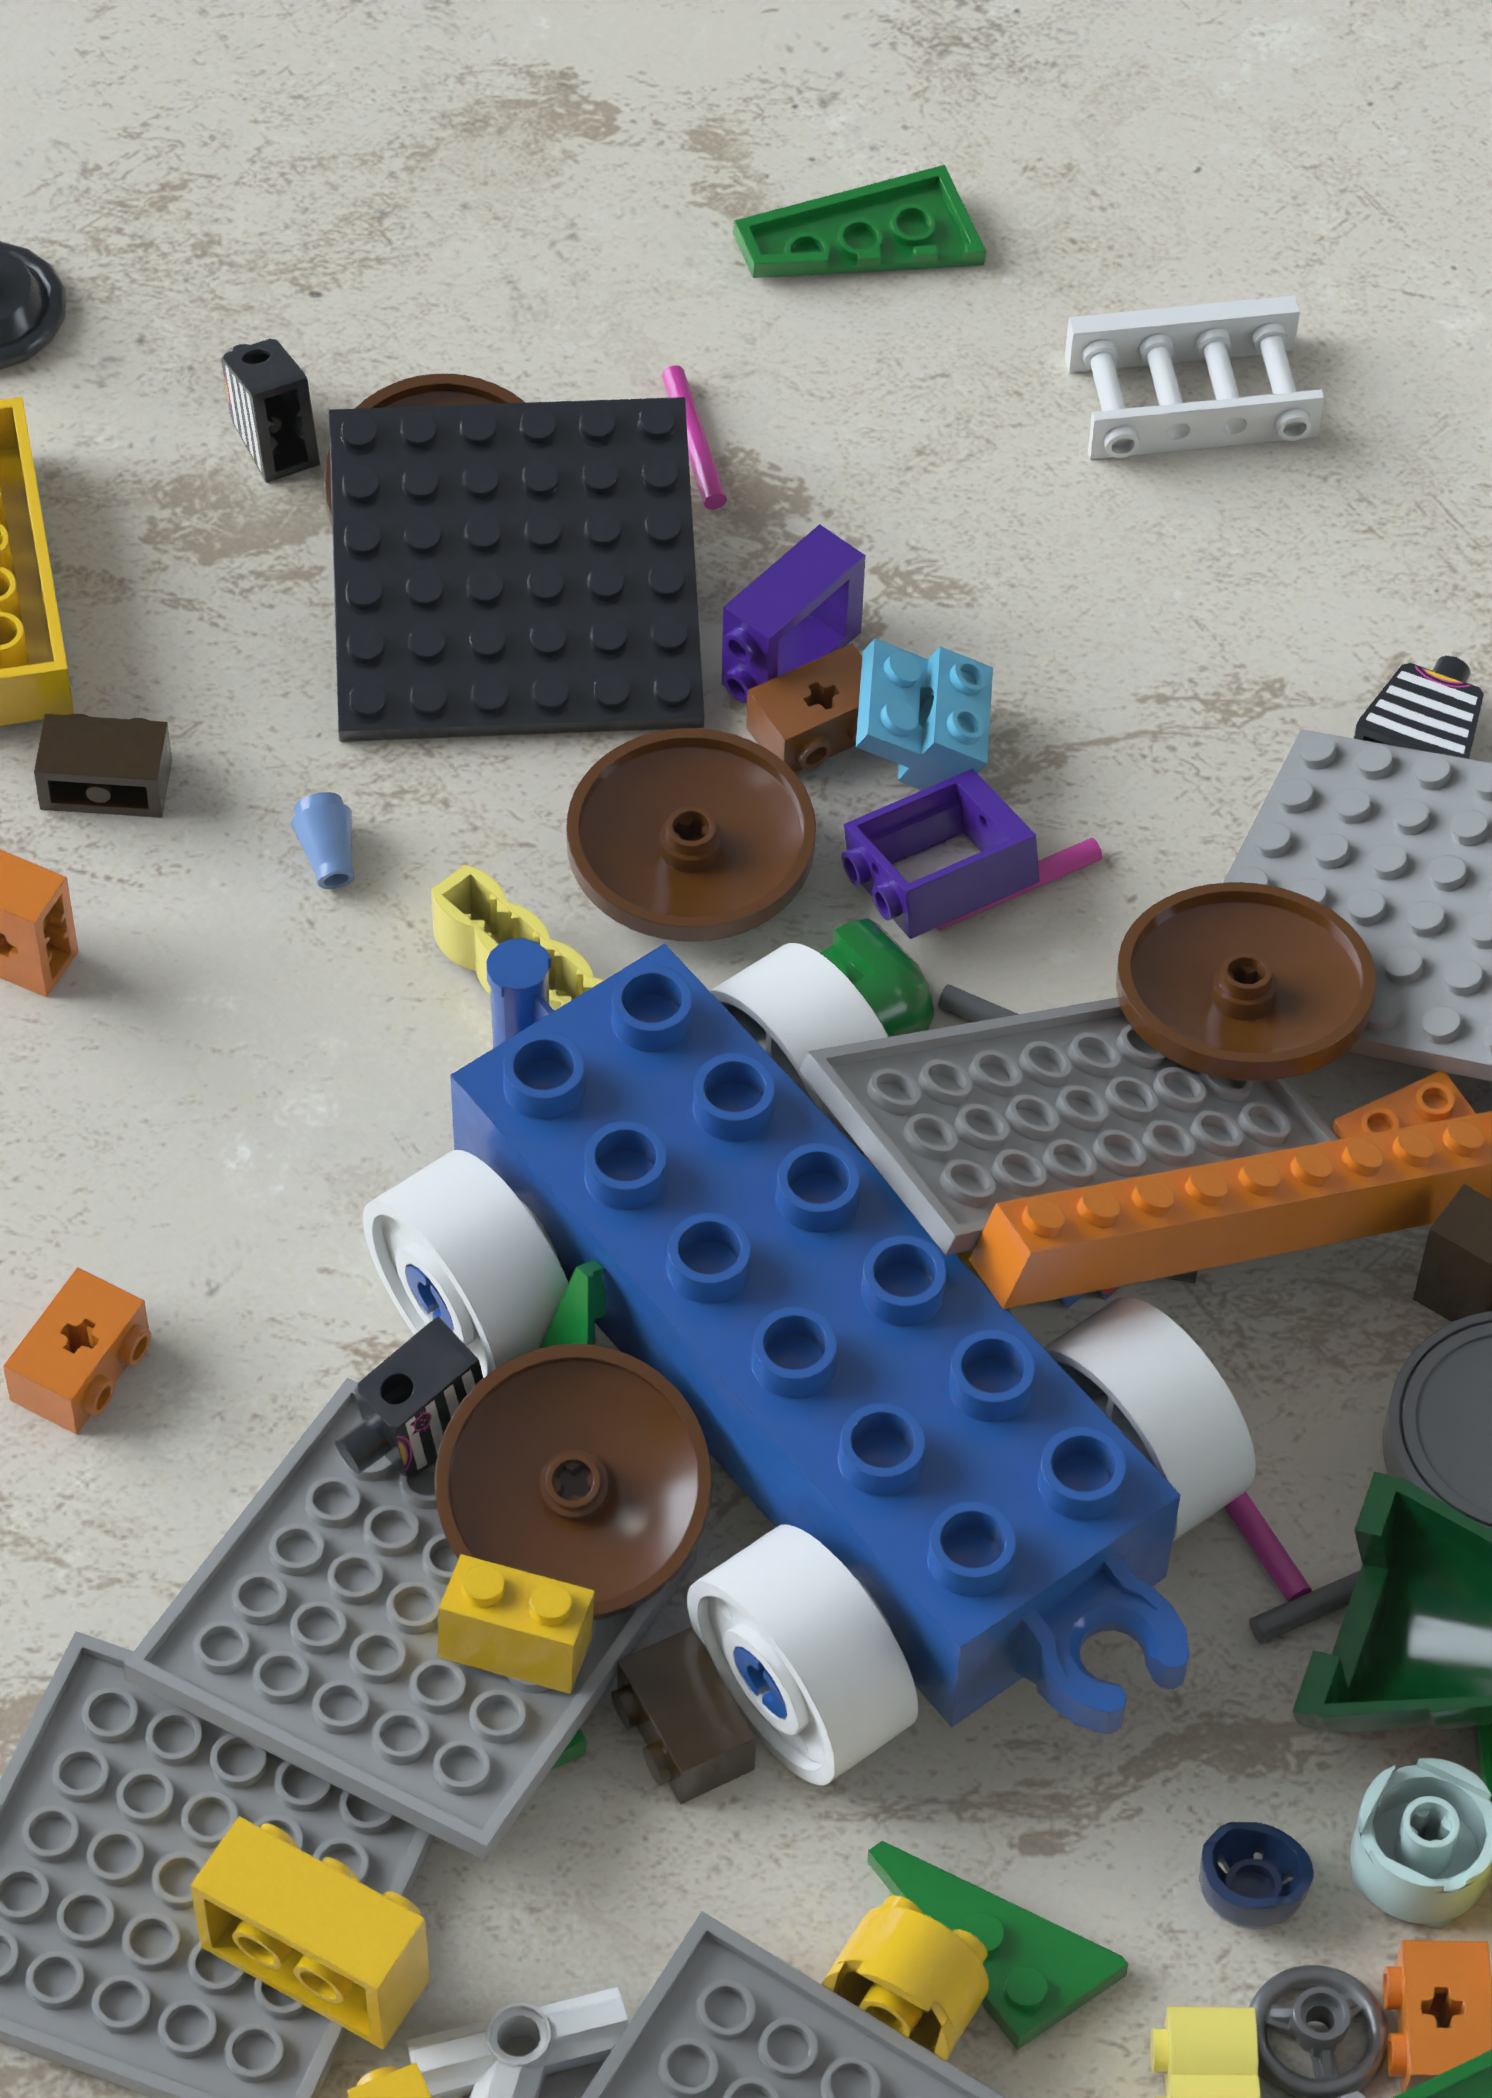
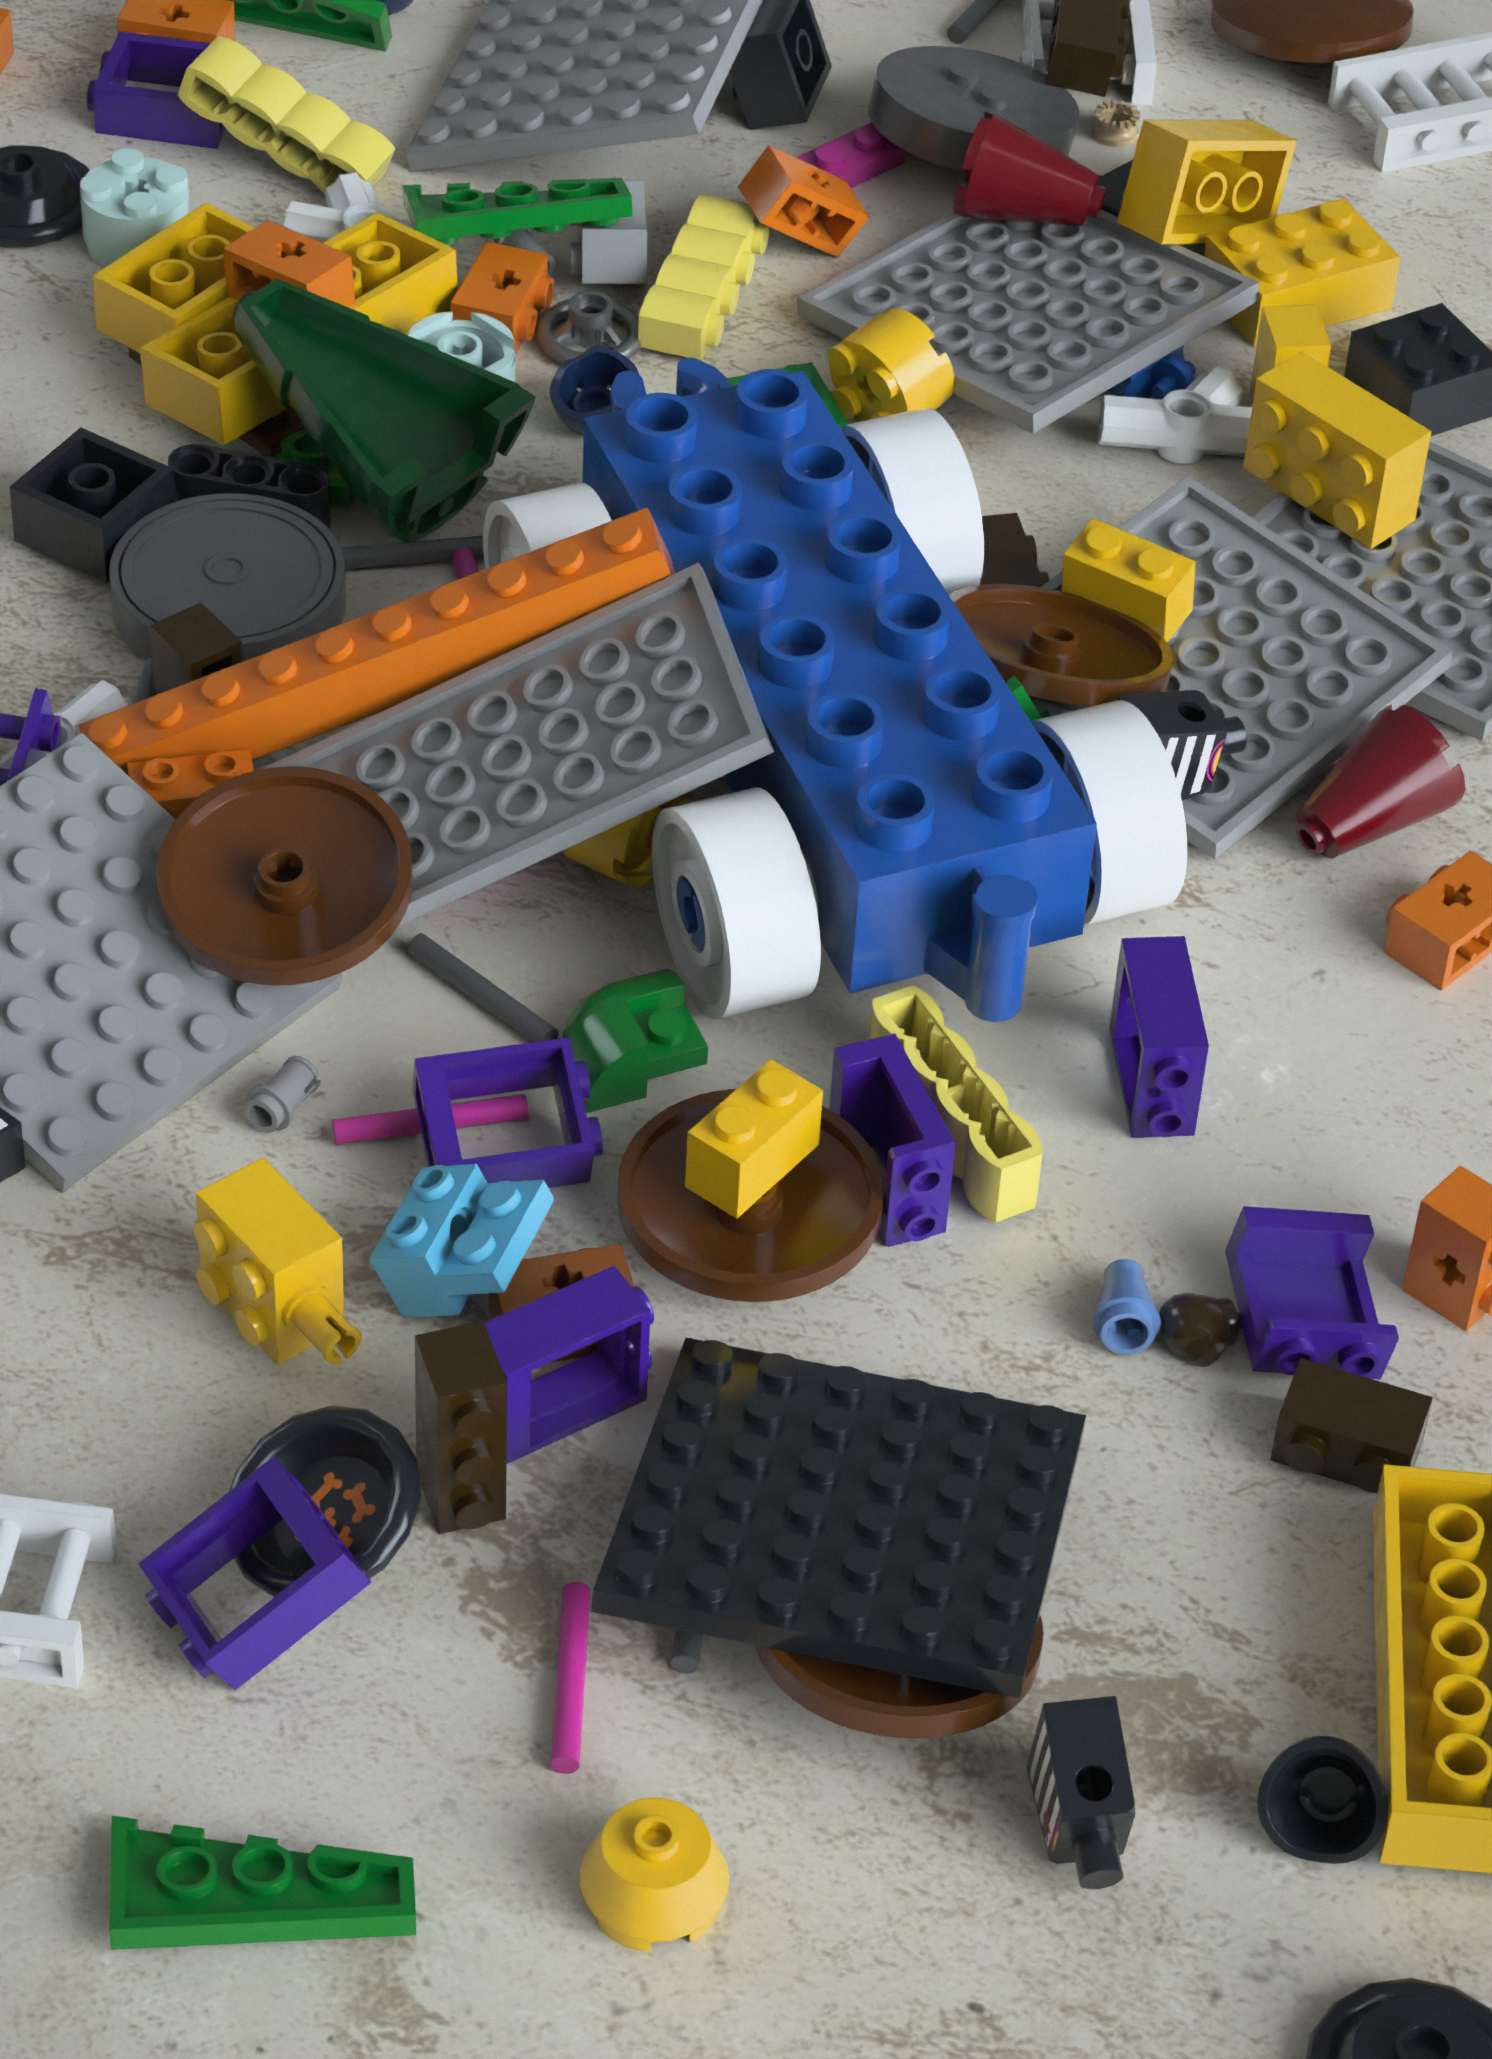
camera: 165 degrees left, 10 degrees down
(76, 453) = (1323, 1801): none -> black helmet
(159, 874) = (1307, 1291): none -> dark purple panel
(178, 1487) = (1380, 785): none -> dark red cone
(255, 845) = (1199, 1327): none -> dark brown piece
(354, 1079) = (1158, 1036): none -> dark purple window
(543, 881) = (891, 1109): none -> dark purple panel
(574, 294) = (654, 1874): none -> yellow cone
(696, 821) = (753, 1138): none -> yellow brick
(848, 491) = (461, 1426): none -> dark brown brick
(936, 475) = (358, 1478): none -> black piece
(956, 401) = (219, 1537): none -> dark purple window
(1069, 646) = (273, 1265): none -> yellow brick
(1159, 846) = (272, 1105): none -> light grey pin

